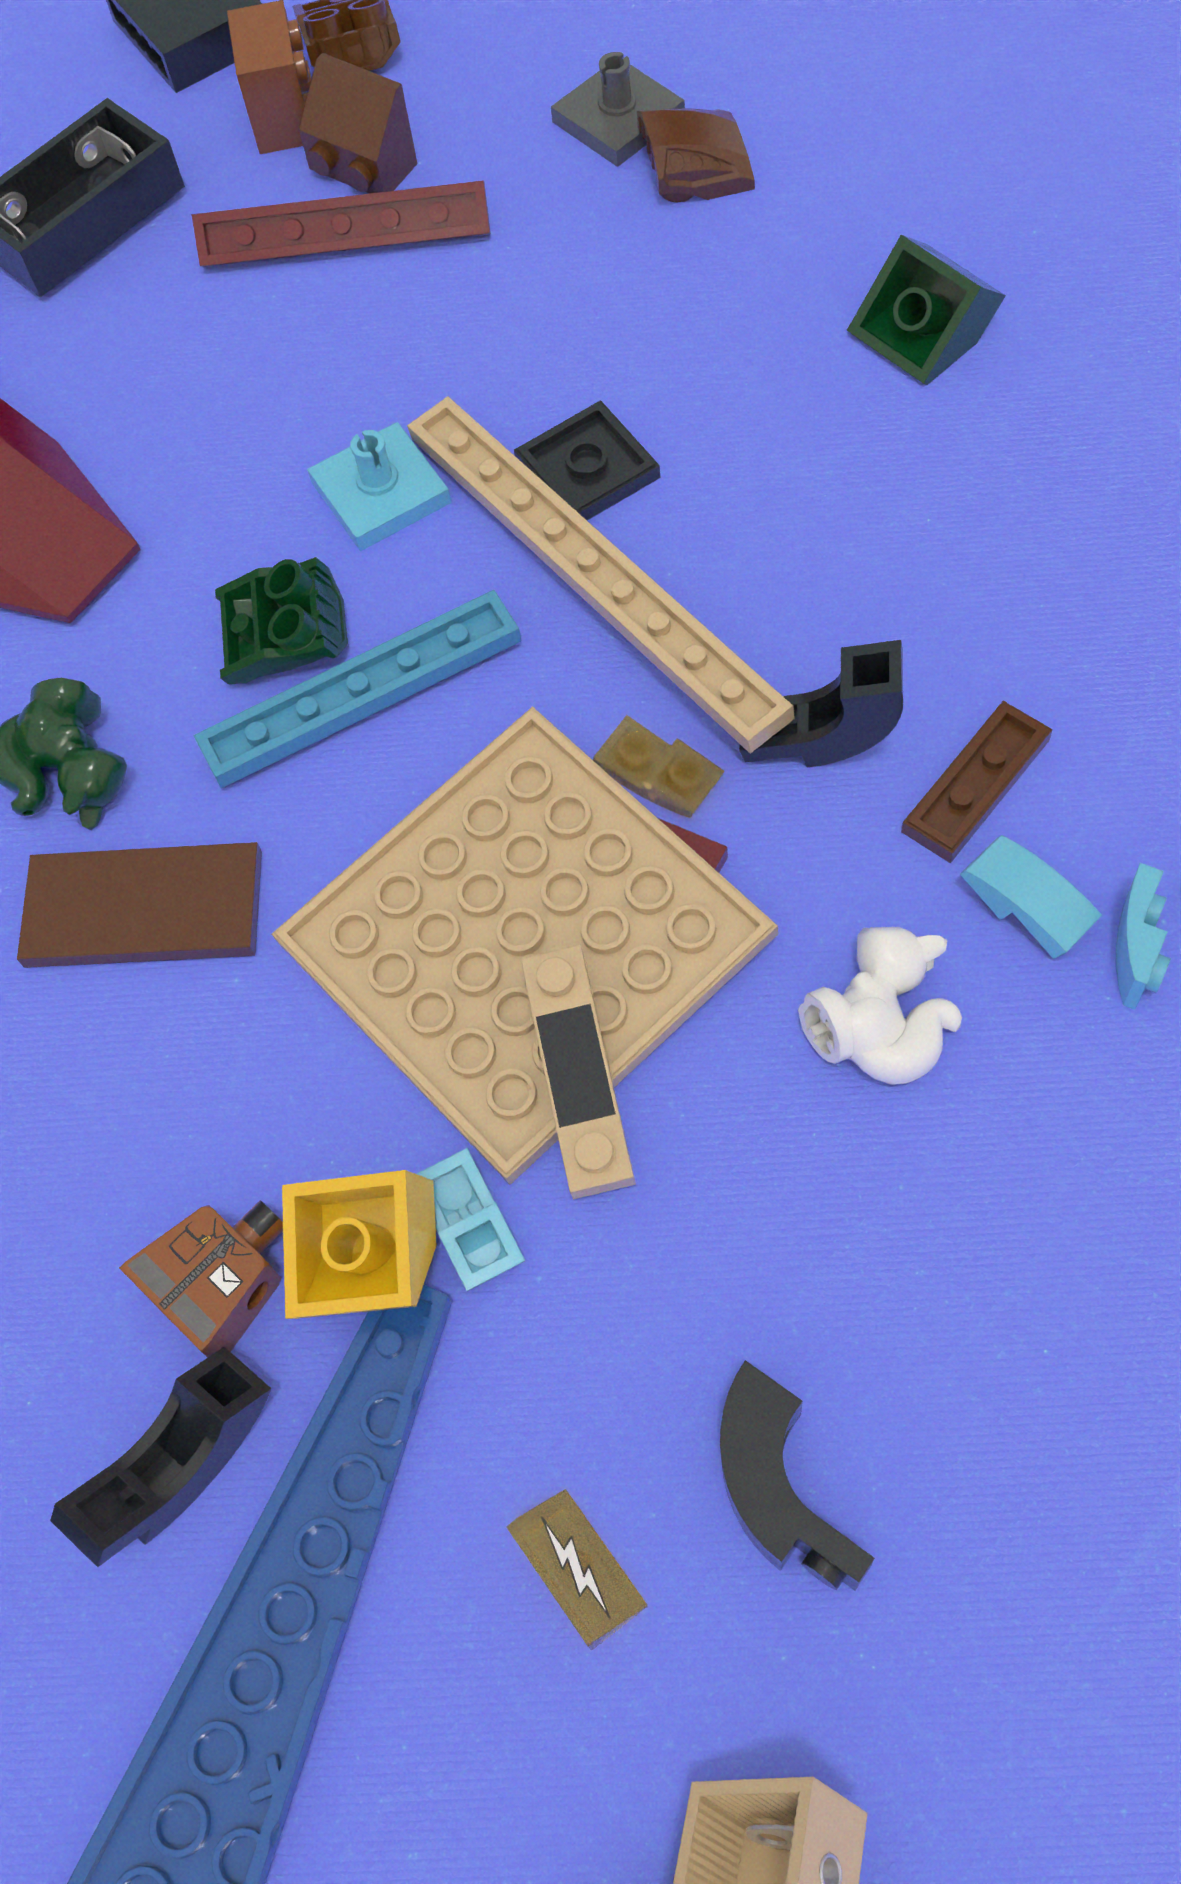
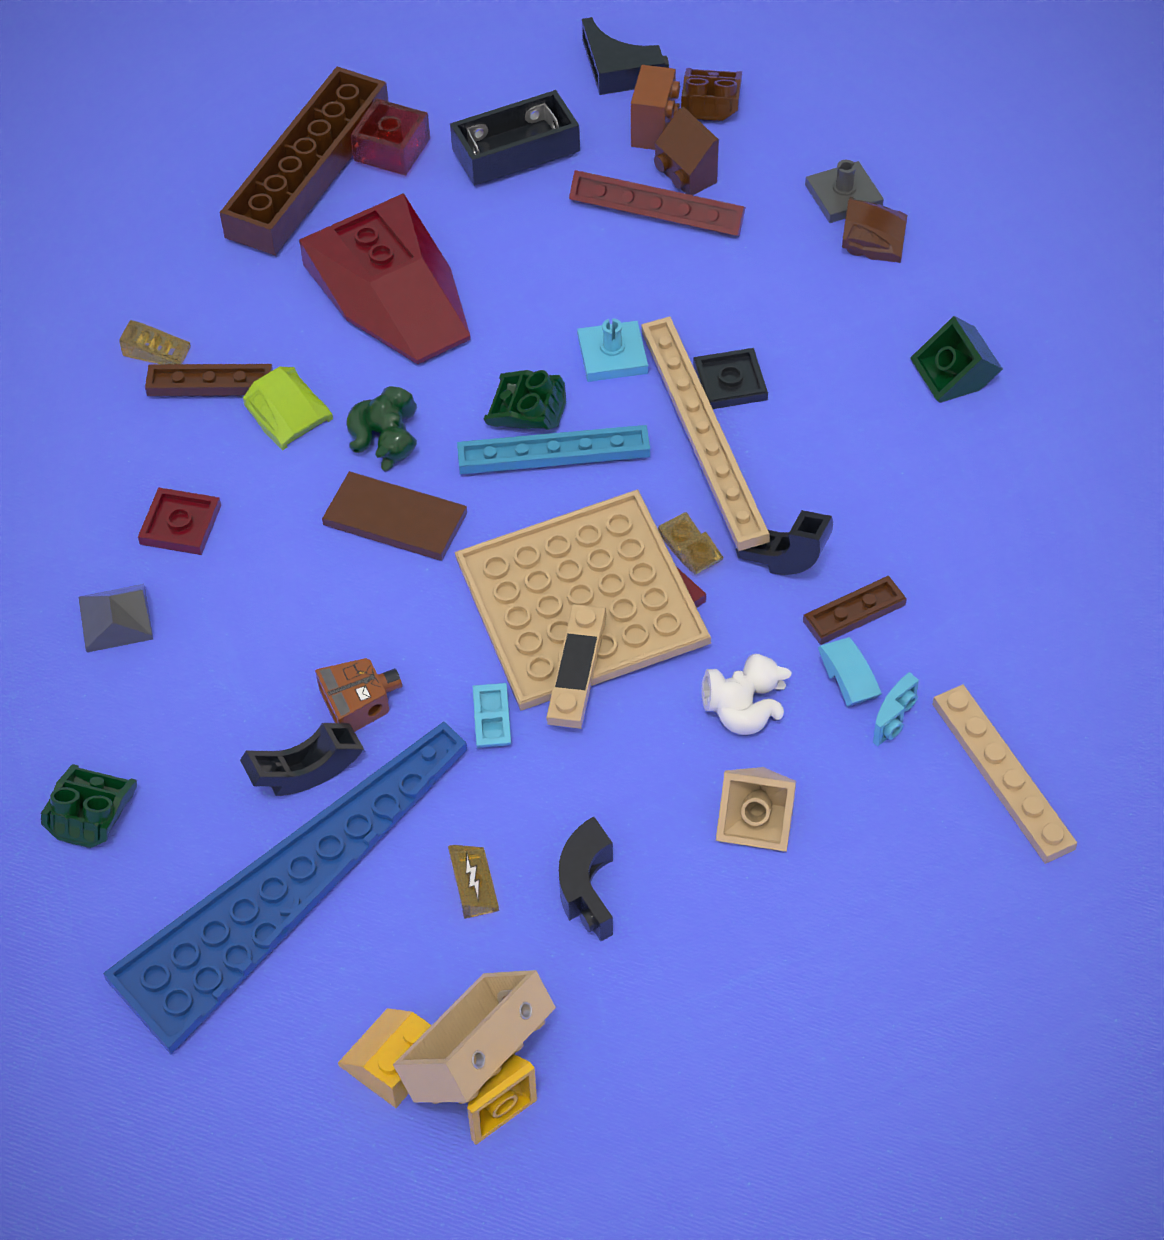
camera: 15 degrees right, 10 degrees down
(357, 1243) = (434, 697): yellow slope -> none
(1013, 1218) = (756, 808): none -> tan slope

